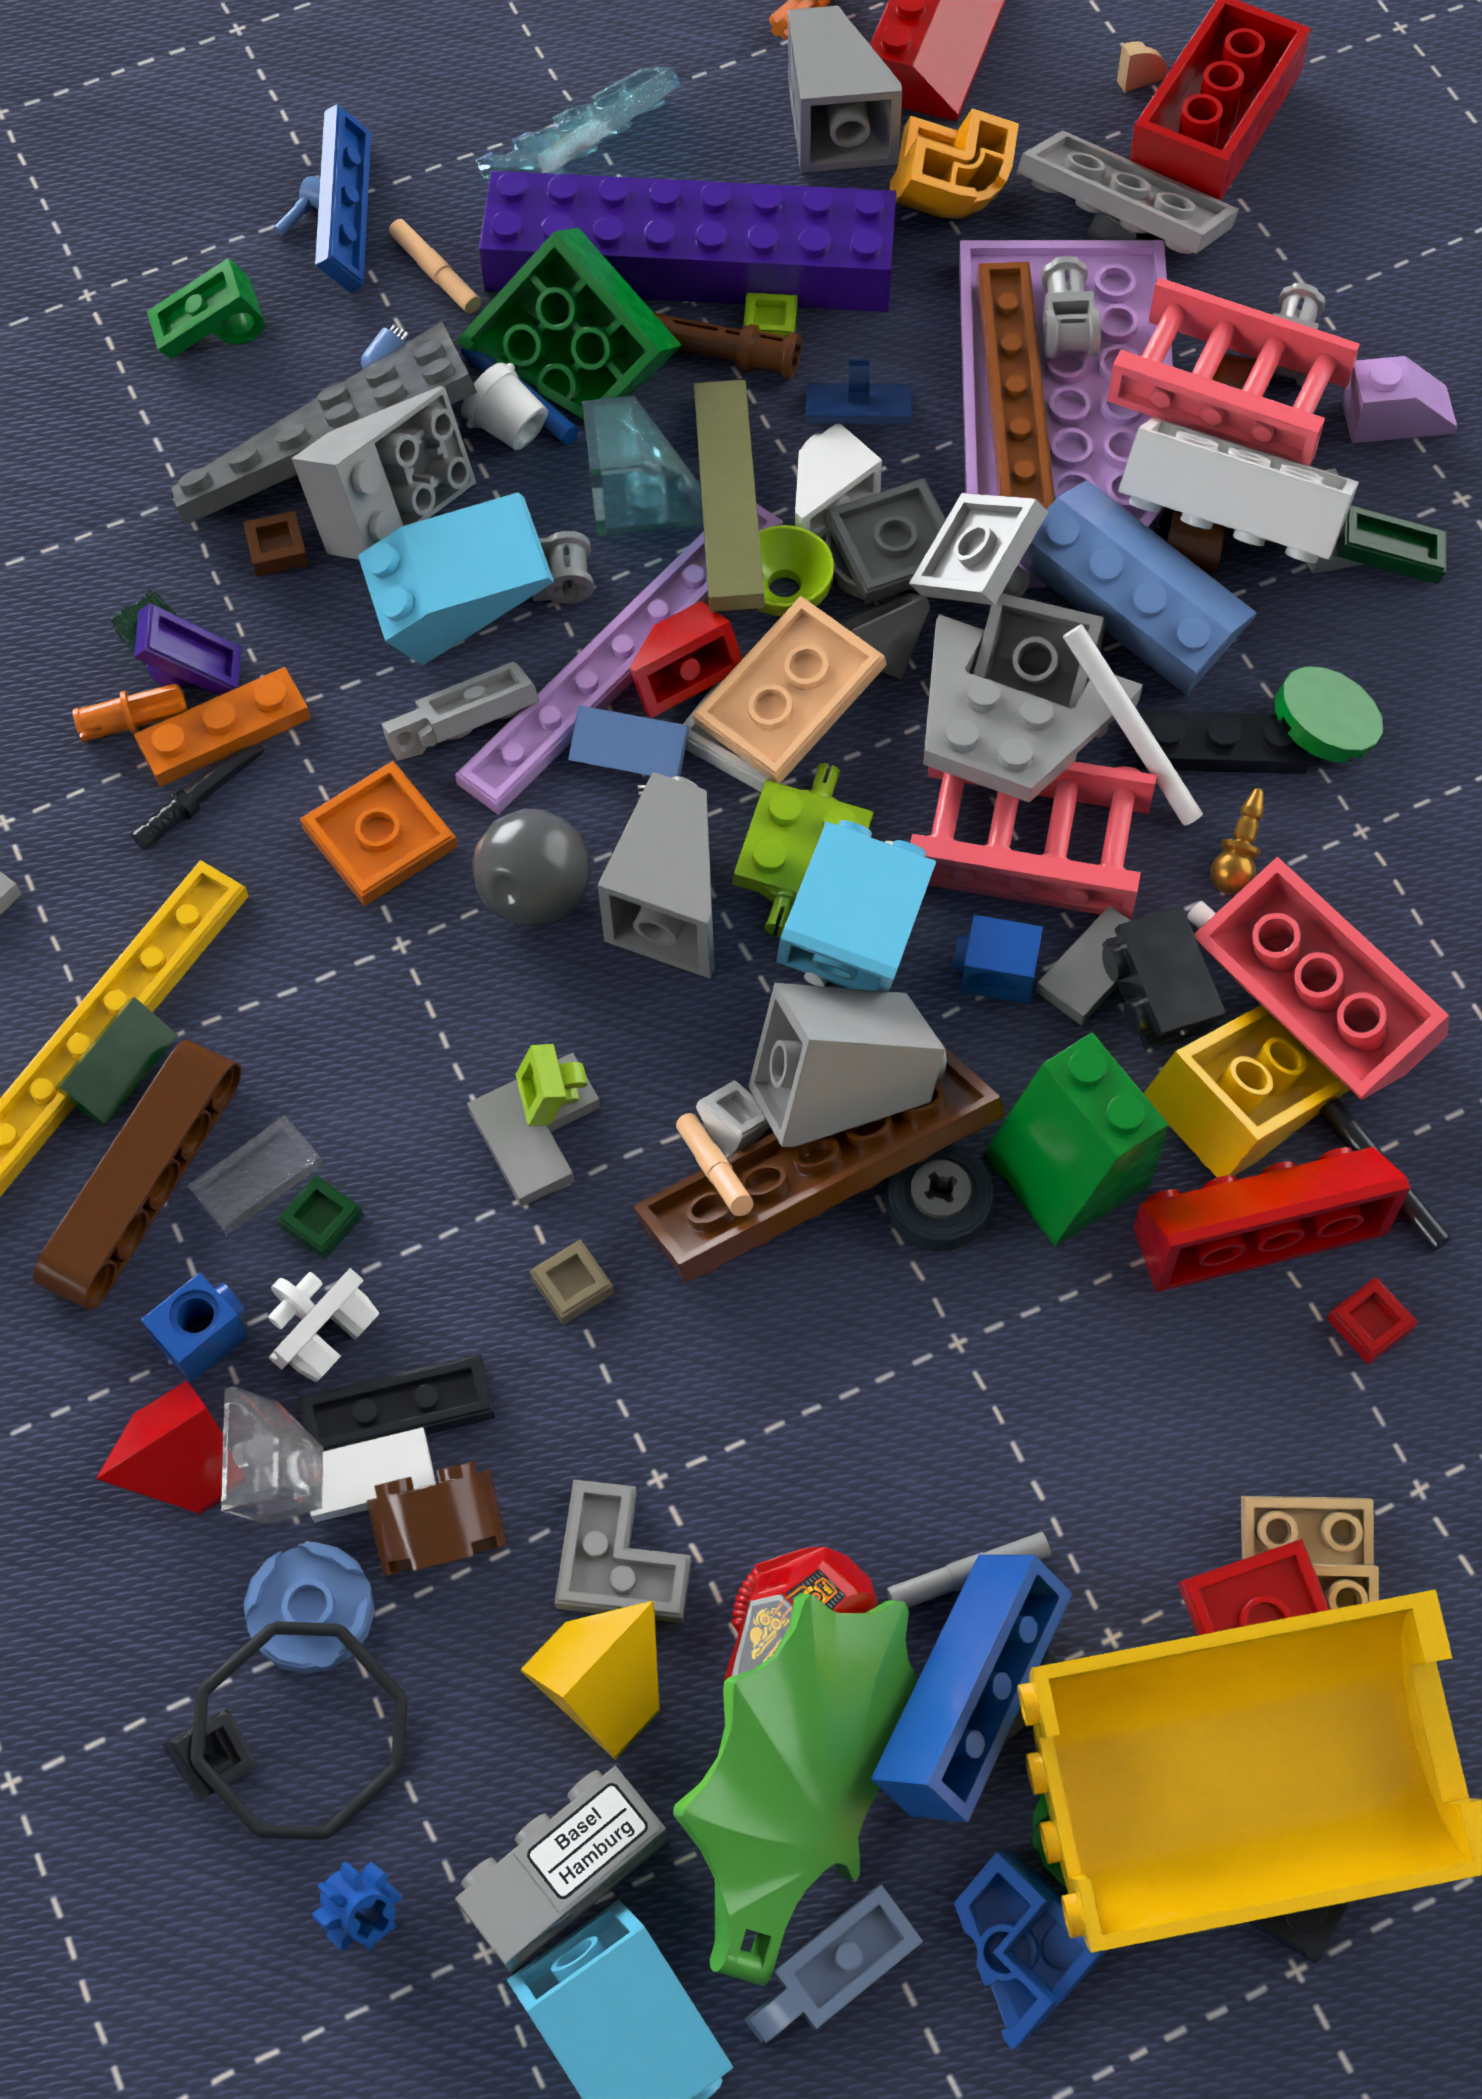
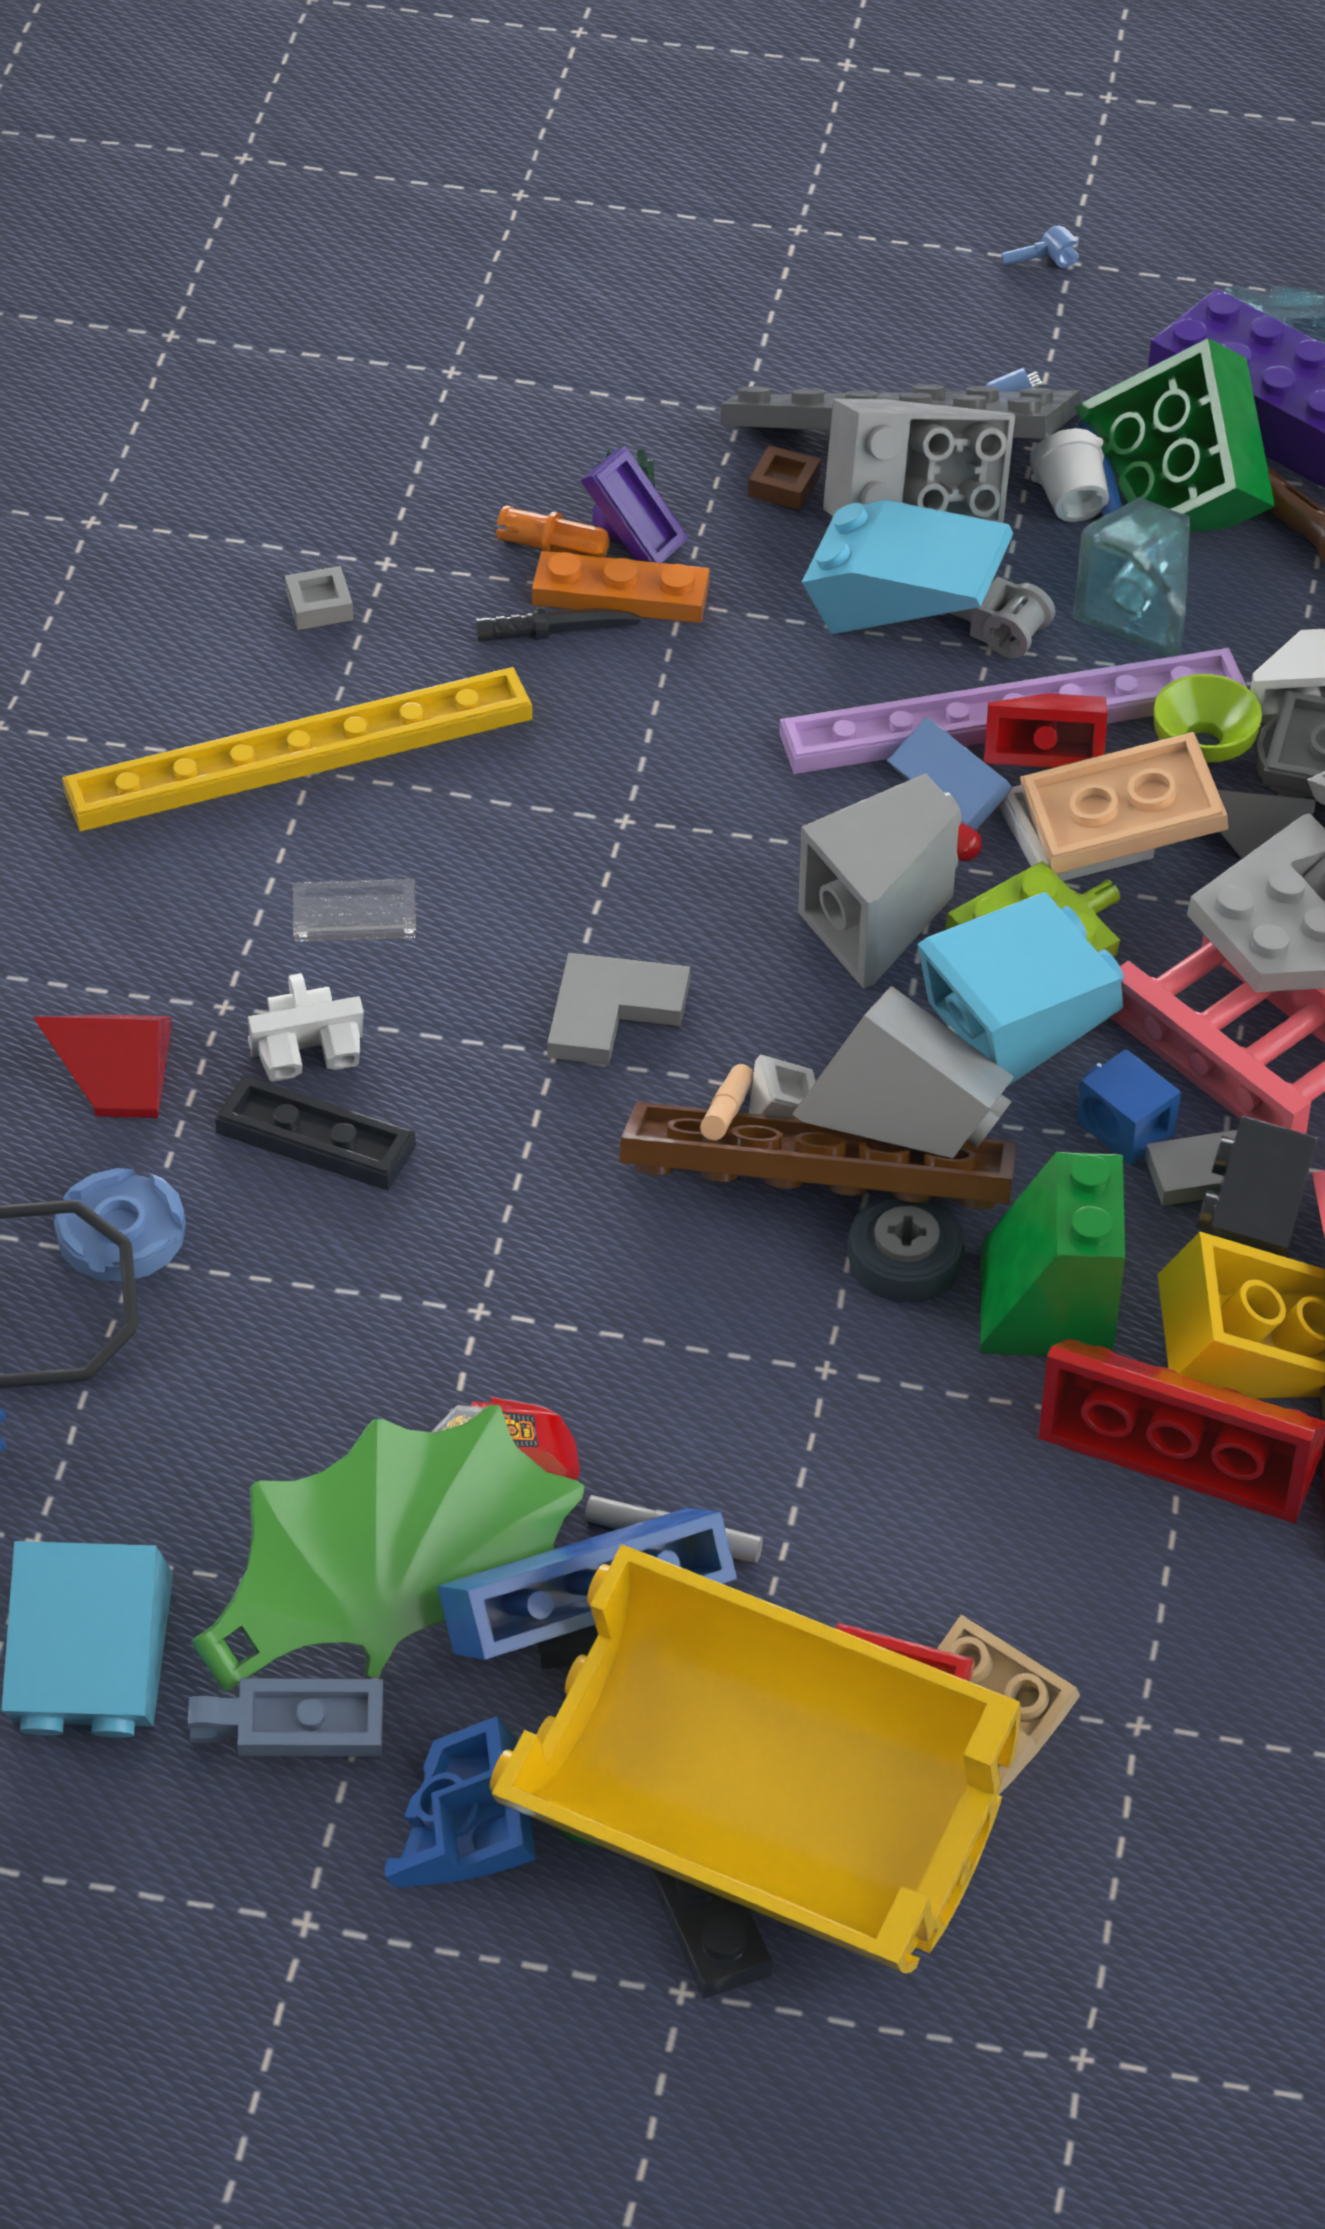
camera: 35 degrees right, 15 degrees down
(116, 1061) = (316, 766): dark green tile -> none
(137, 1175) = (261, 851): reddish brown beam -> none
(196, 1351) = (209, 978): blue brick -> none
(214, 303) = (896, 279): green plate -> none
(268, 1460) = (174, 1096): clear slope -> none
(320, 1217) = (378, 967): dark green tile -> none
(343, 198) = (1077, 257): blue tile -> none
(357, 1468) = (250, 1163): white tile -> none
(378, 833) = (678, 729): orange tile -> none
(435, 266) = (1113, 340): light nougat piece -> none
(437, 1520) = (273, 1216): reddish brown cylinder -> none
(460, 709) = (824, 673): light grey hinge -> none
(531, 867) = (765, 801): dark grey piece -> none
(546, 1084) = (642, 967): lime tile -> none
(561, 1866) = (183, 1505): light grey brick -> none
(571, 1282) = (538, 1130): dark tan tile -> none
(600, 1568) = (377, 1346): light grey tile -> none
(603, 1674) = (303, 1410): yellow slope -> none
(728, 497) = (1205, 634): olive tile -> none
(1372, 1320) = (1215, 1572): red tile -> none

